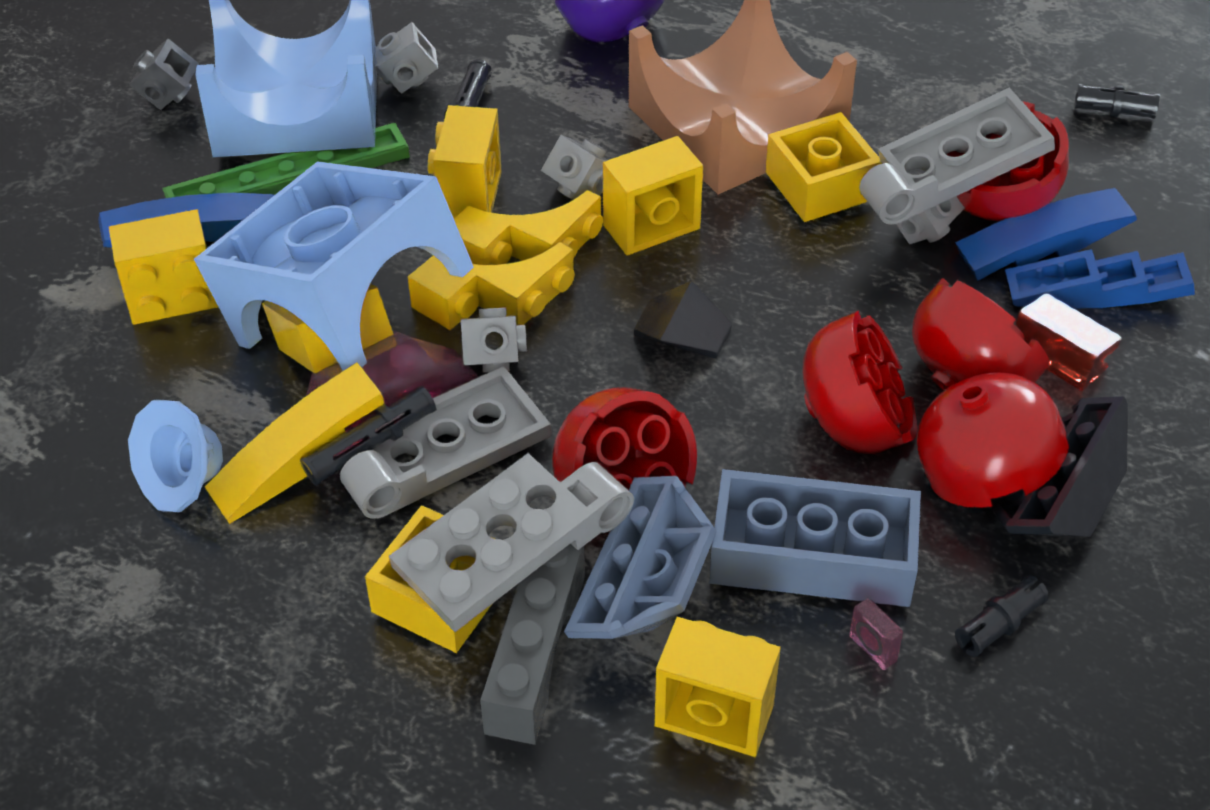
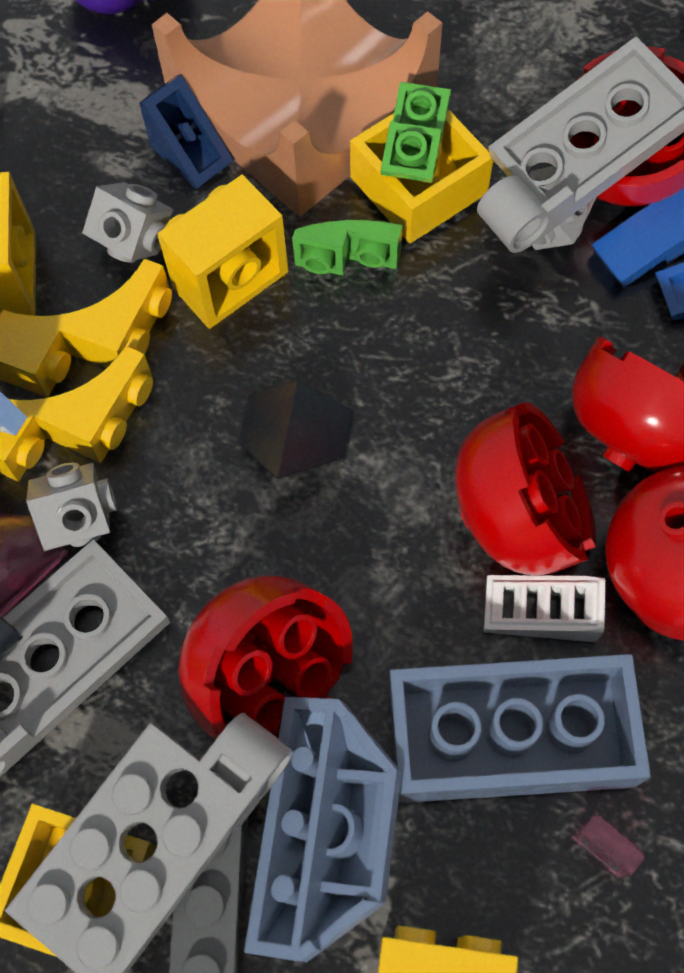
camera: 10 degrees left, 20 degrees up
(633, 114) = (183, 132): none -> dark blue slope
(742, 208) = (329, 245): none -> bright green slope
(822, 133) = (416, 132): none -> bright green slope
(888, 467) = (567, 587): none -> white slope

